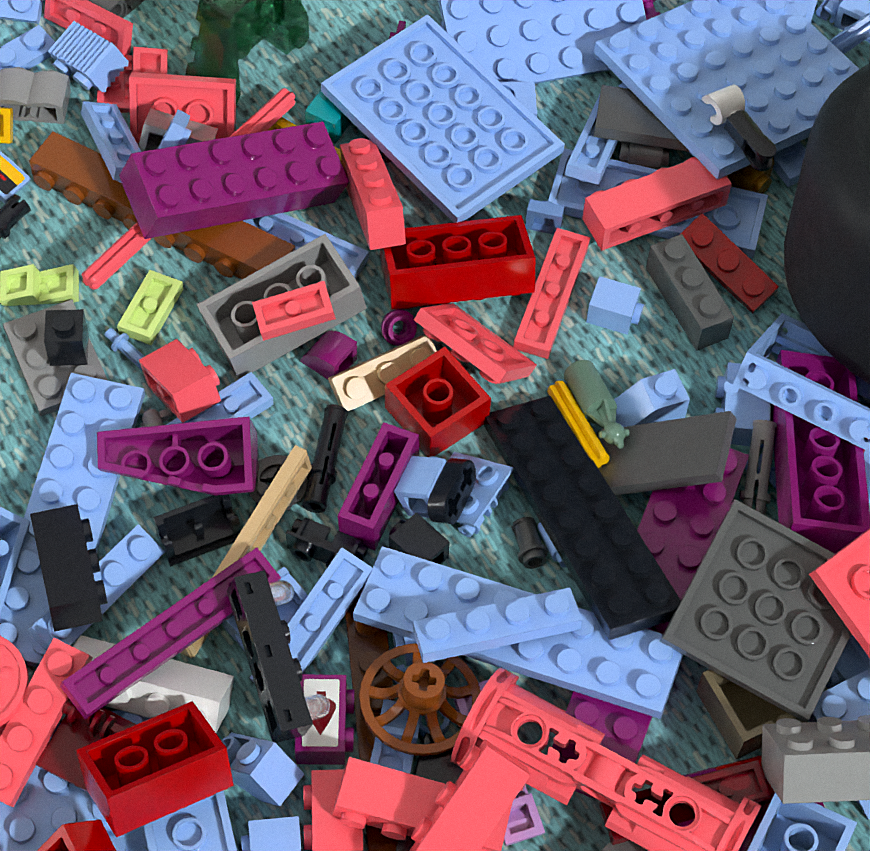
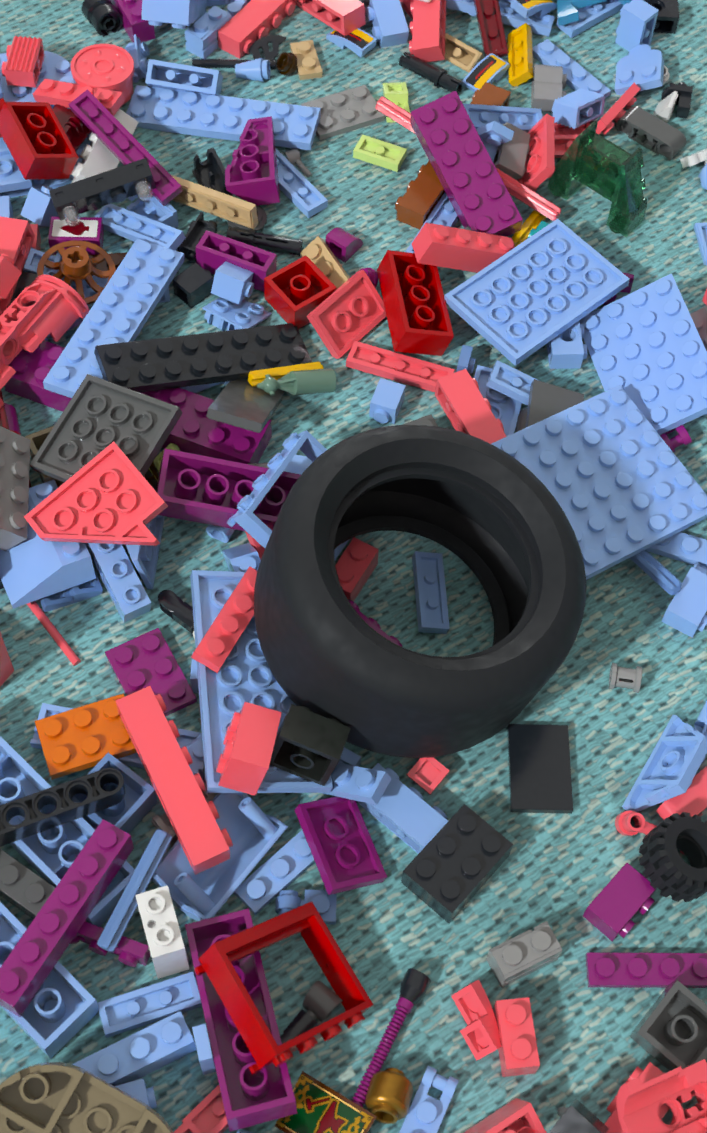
camera: 90 degrees right, 0 degrees up
(66, 337) = (343, 101): black brick -> none
(68, 567) = (173, 100): black brick -> none
(118, 571) = (168, 128): light blue plate -> none
(121, 343) = (352, 141): light blue piece -> none
(181, 380) = (316, 161): coral brick -> none
(233, 320) = (372, 208): light grey brick -> none
(293, 310) = (353, 196): coral plate -> none
(451, 491) = (224, 291): black beam -> none
(496, 625) = (110, 294): light blue plate -> none
(653, 400) = (301, 416): light blue slope -> none
(740, 126) = (538, 444): black piece -> none

